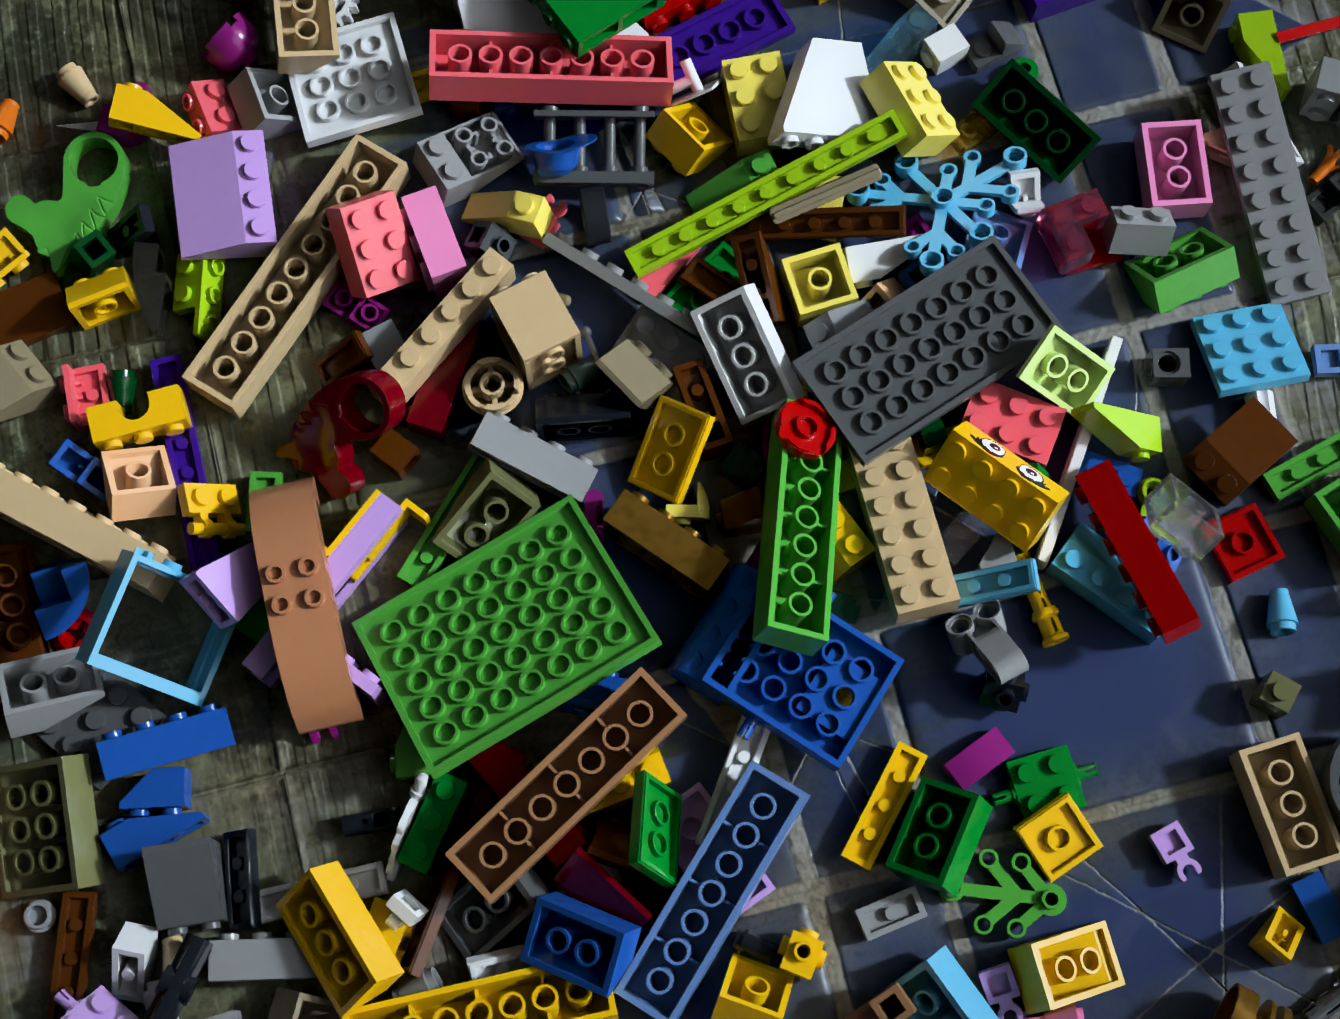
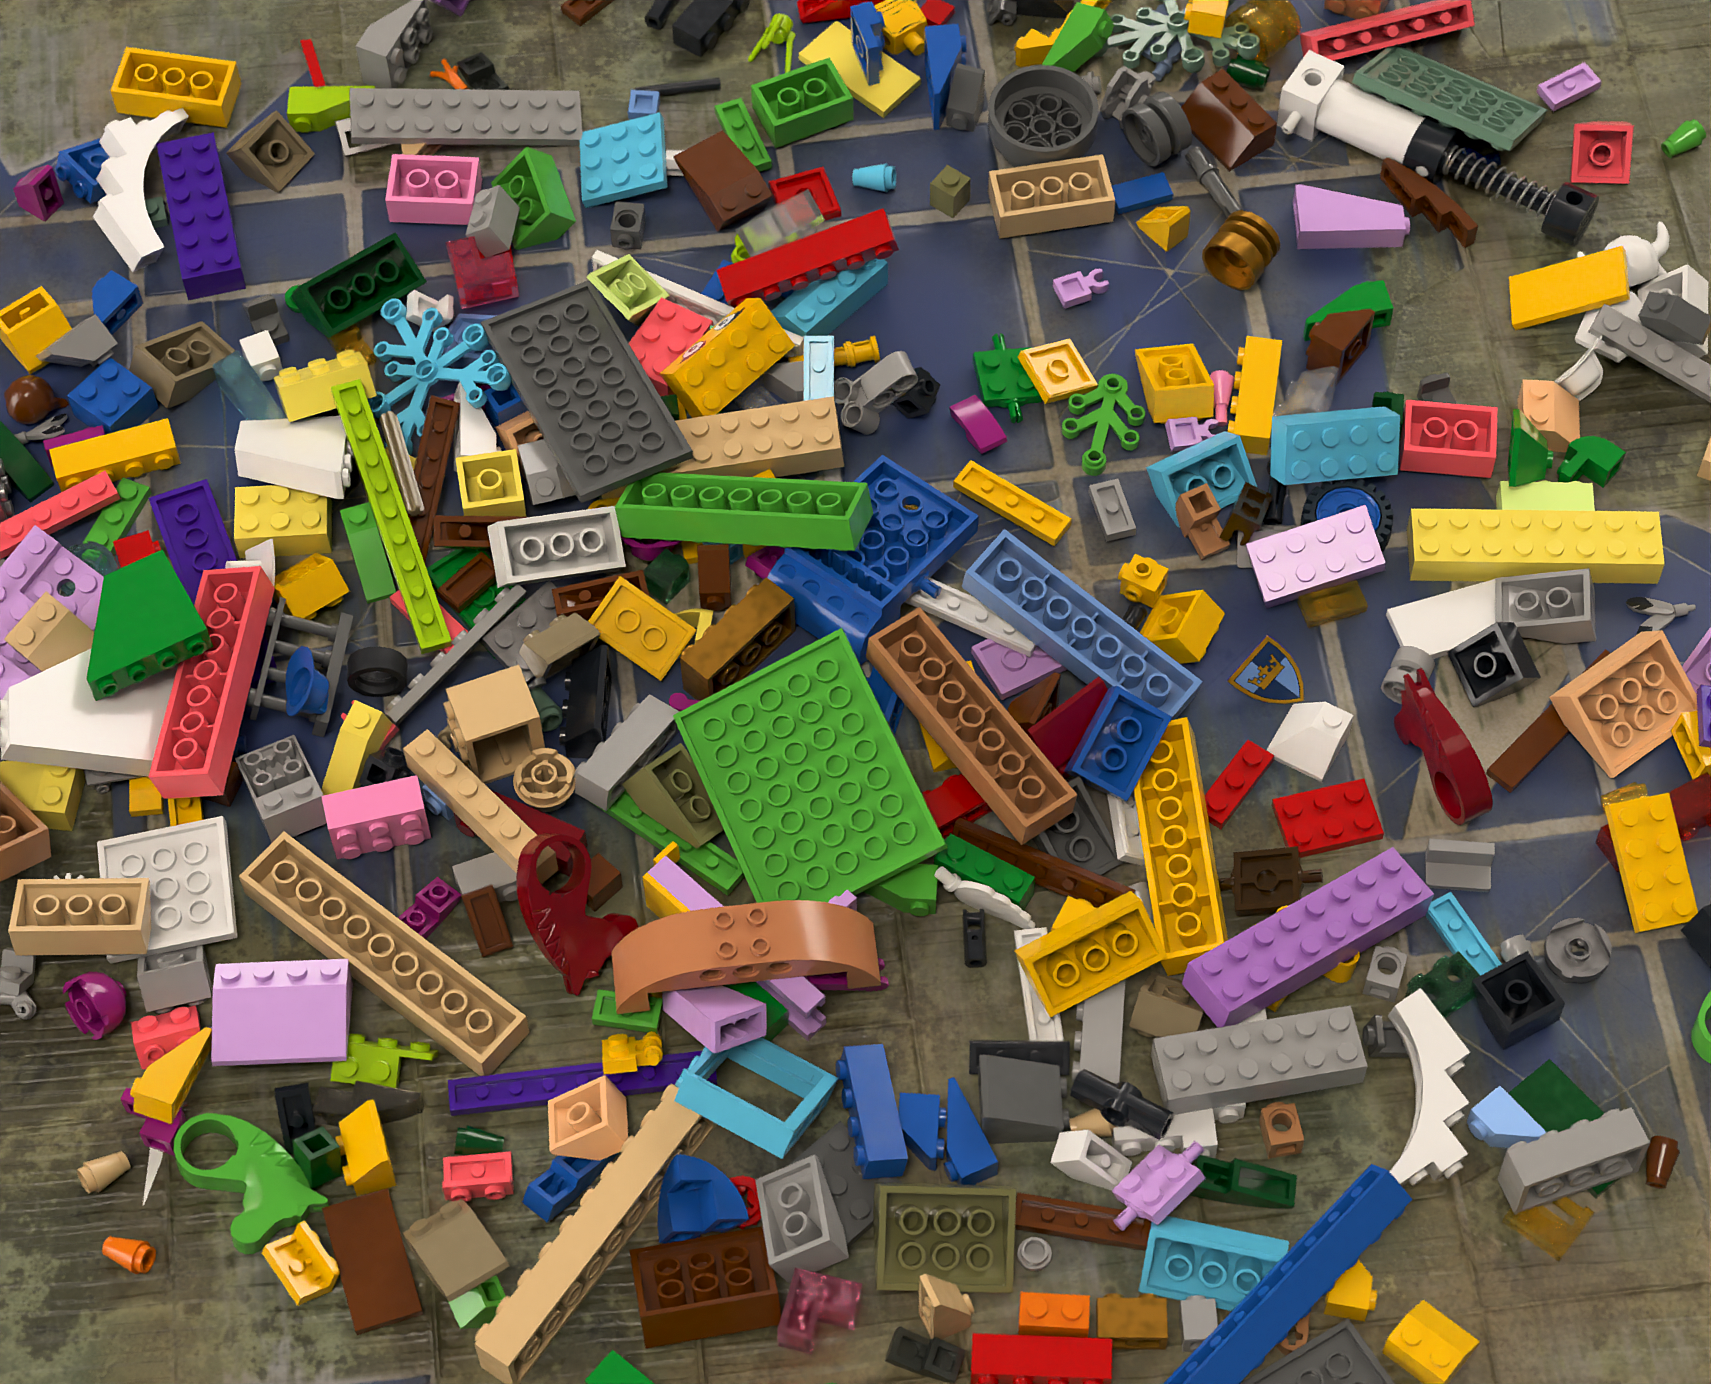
camera: 80 degrees left, 15 degrees down
(165, 415) = (516, 1086): yellow arch -> none
(372, 243) = (370, 866): coral brick -> none
(405, 910) = (1071, 894): white tile -> none
(655, 830) = (1022, 666): green tile -> none
(804, 428) = (649, 493): red tile -> none
(939, 836) = (1048, 454): green brick -> none
(1122, 430) = (688, 261): lime slope -> none

